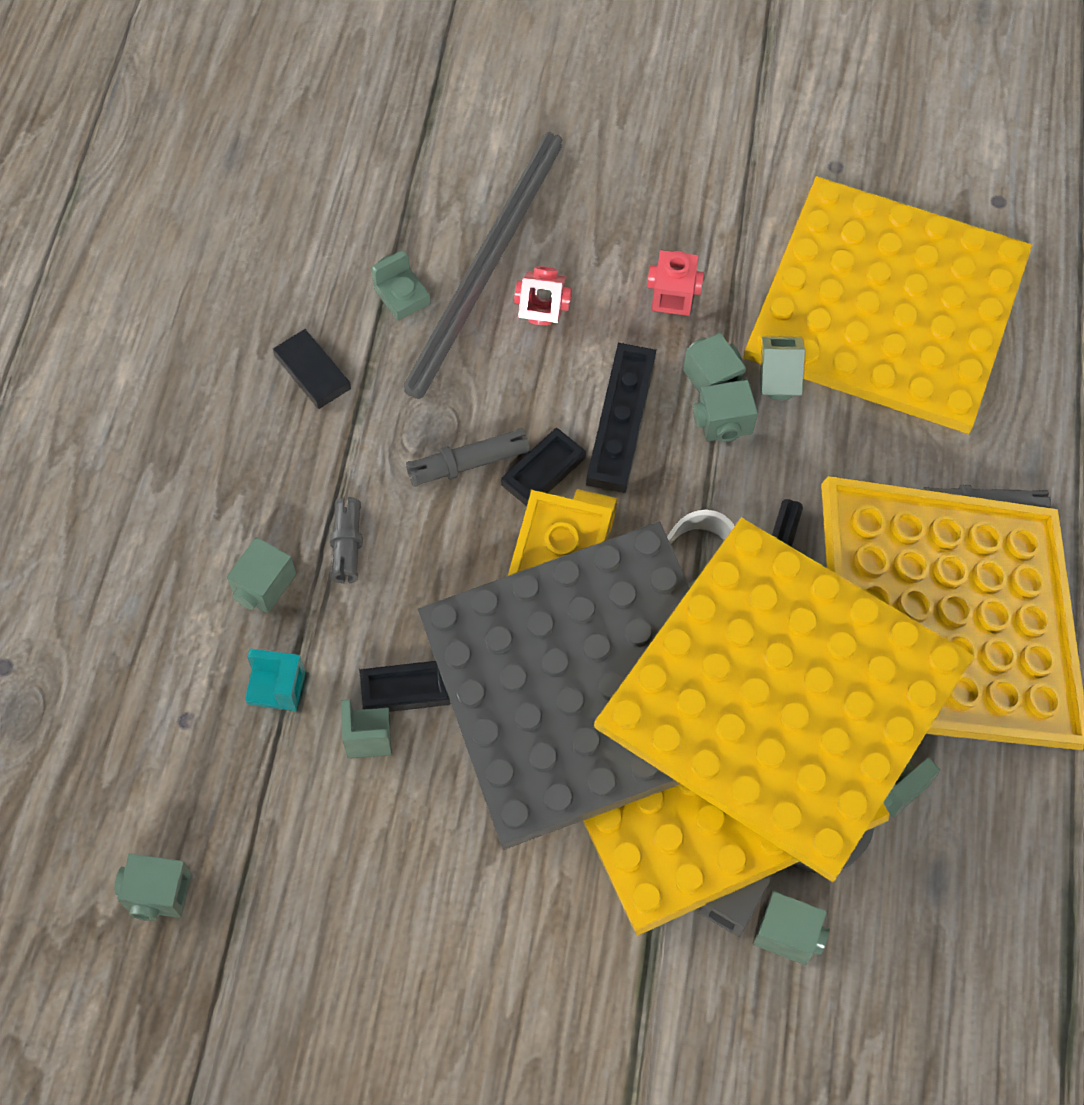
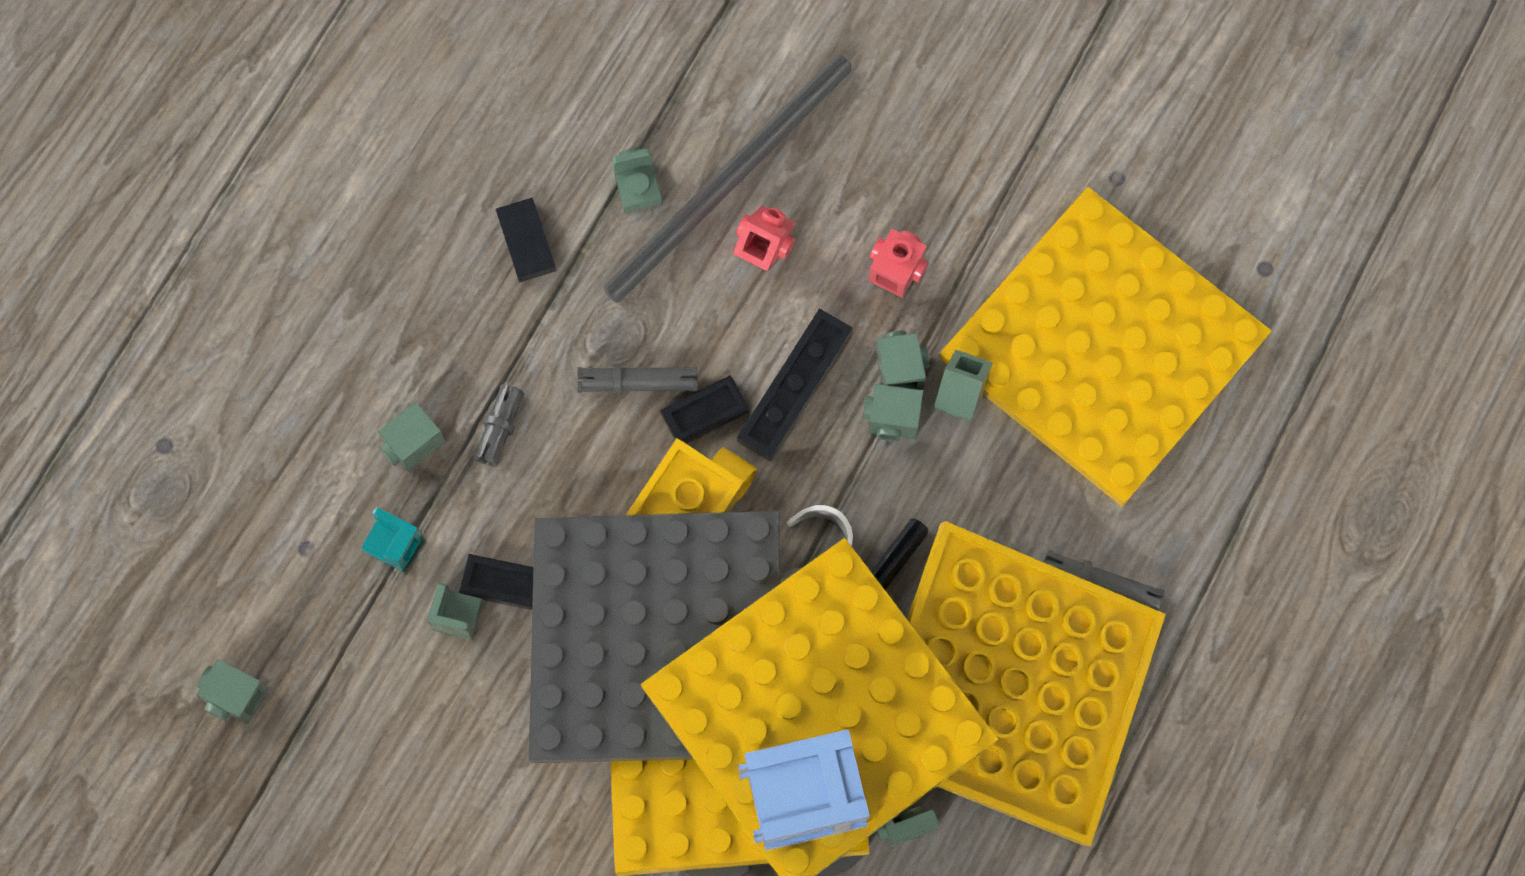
camera: 20 degrees right, 10 degrees up
(819, 757) = (806, 790): none -> light blue container

